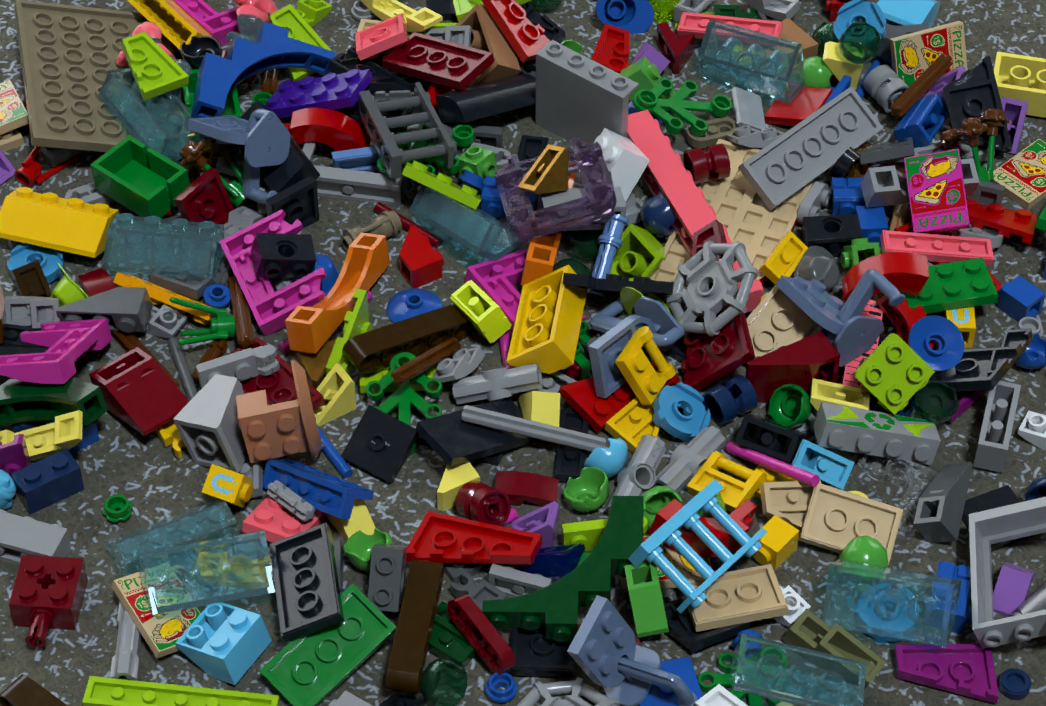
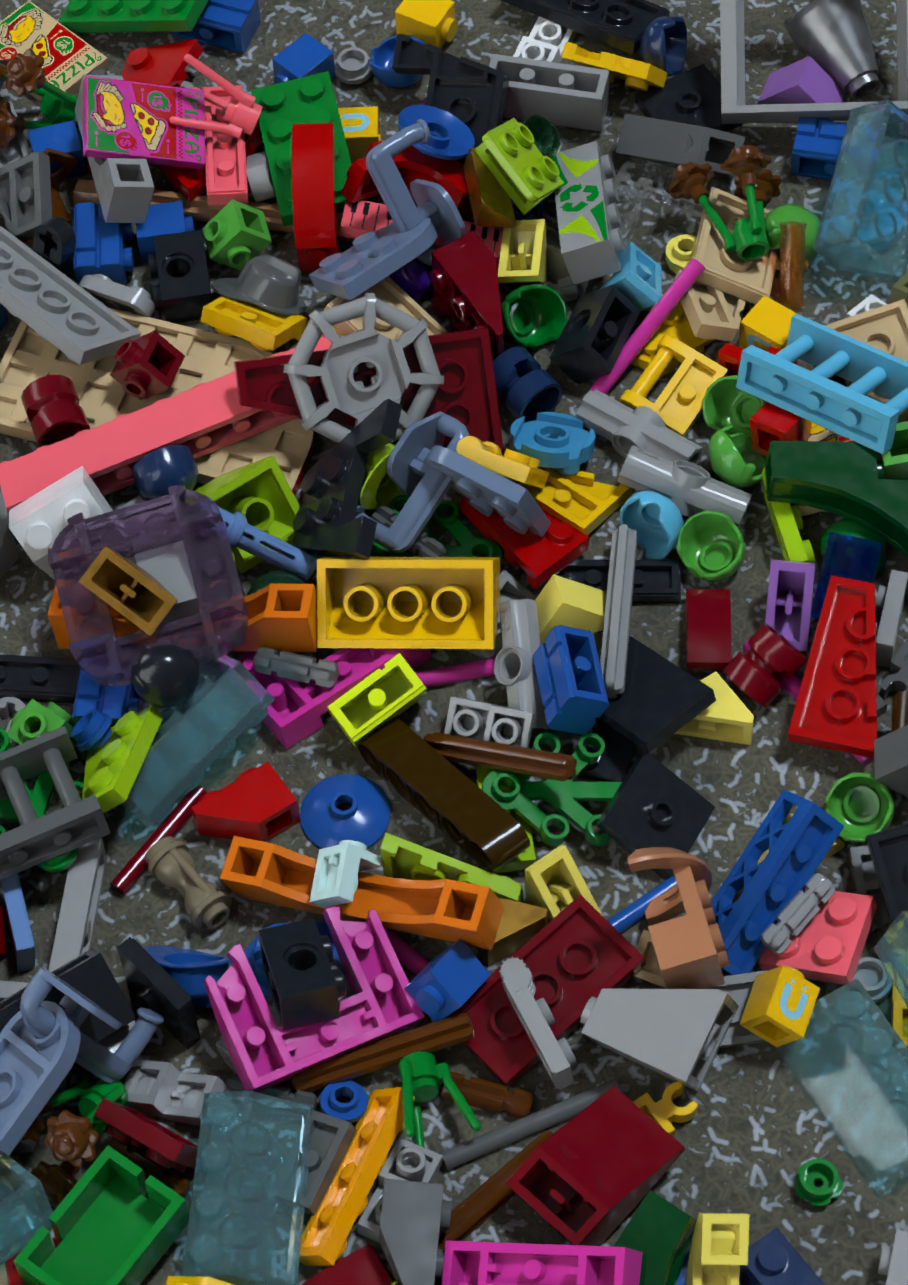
camera: 90 degrees left, 10 degrees up
(272, 330) = (447, 981): none -> blue brick
(318, 222) = (190, 969): none -> blue piece
(350, 278) = (338, 870): none -> light aqua bracket
(470, 389) = (570, 680): none -> blue brick
(491, 199) = (165, 676): none -> black hair
(508, 273) = (296, 667): none -> dark grey axle
(732, 203) = (146, 365): none -> dark red brick
(829, 550) = (792, 264): none -> clear orange pin
(894, 498) = (752, 184): none -> plant
(952, 246) = (240, 113): none -> coral plant
(1022, 461) = (635, 73): none -> yellow wing

